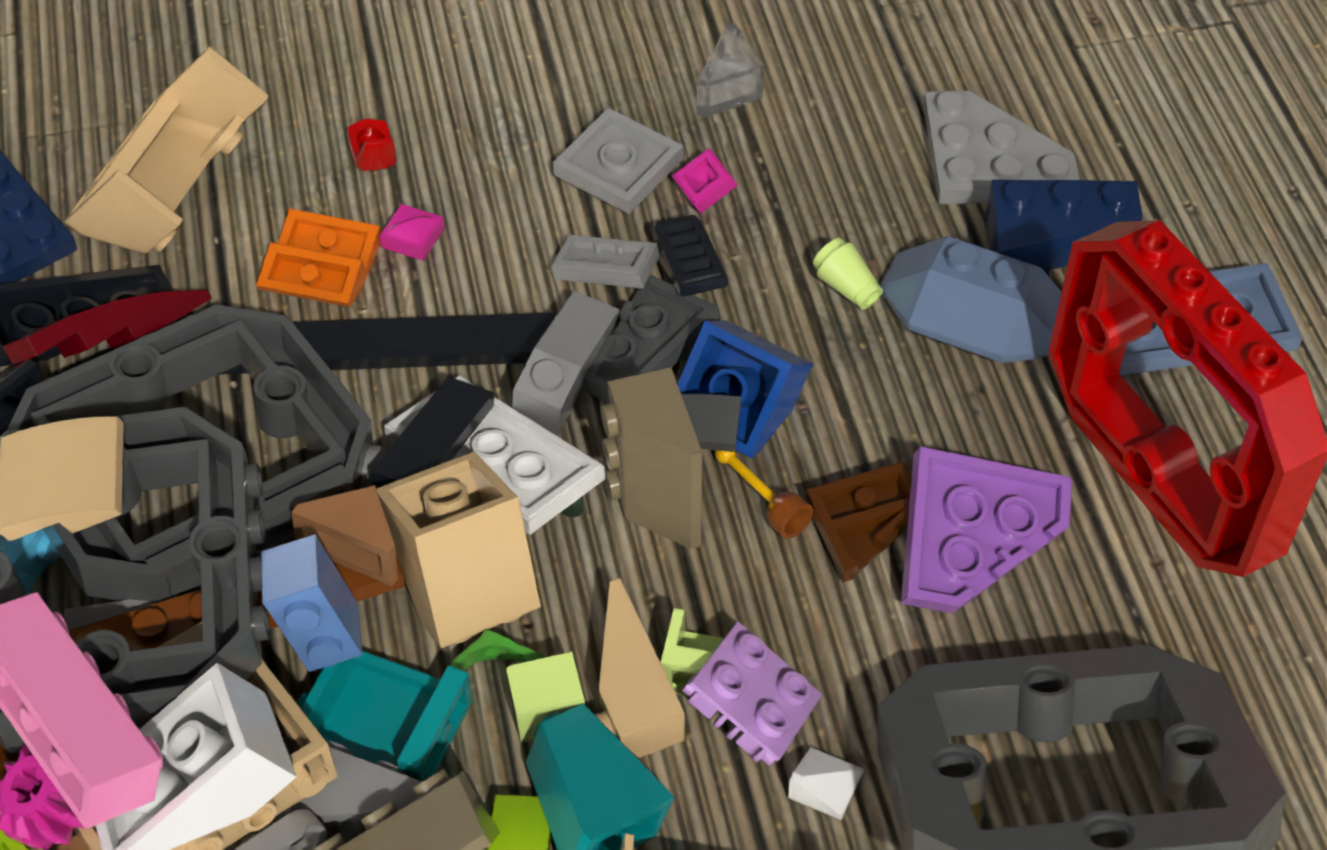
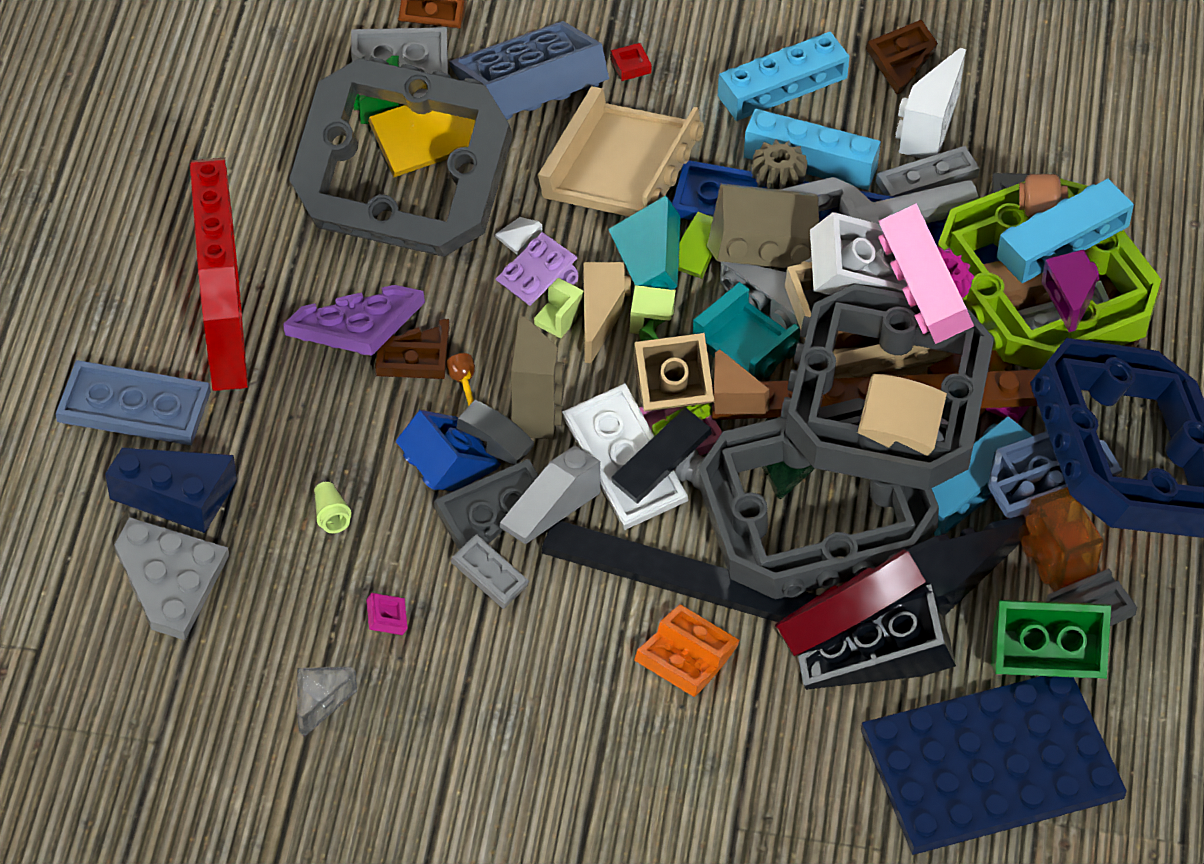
camera: 160 degrees left, 0 degrees up
(165, 154) = (802, 758): tan windscreen -> none
(311, 603) = (773, 346): medium blue brick -> none
(371, 145) = (616, 723): red hair -> none
(412, 232) = (613, 650): dark pink tile -> none
(618, 160) = (440, 651): light grey plate -> none
(688, 256) = (433, 572): black slope -> none
(974, 299) = (267, 460): sand blue wedge -> none

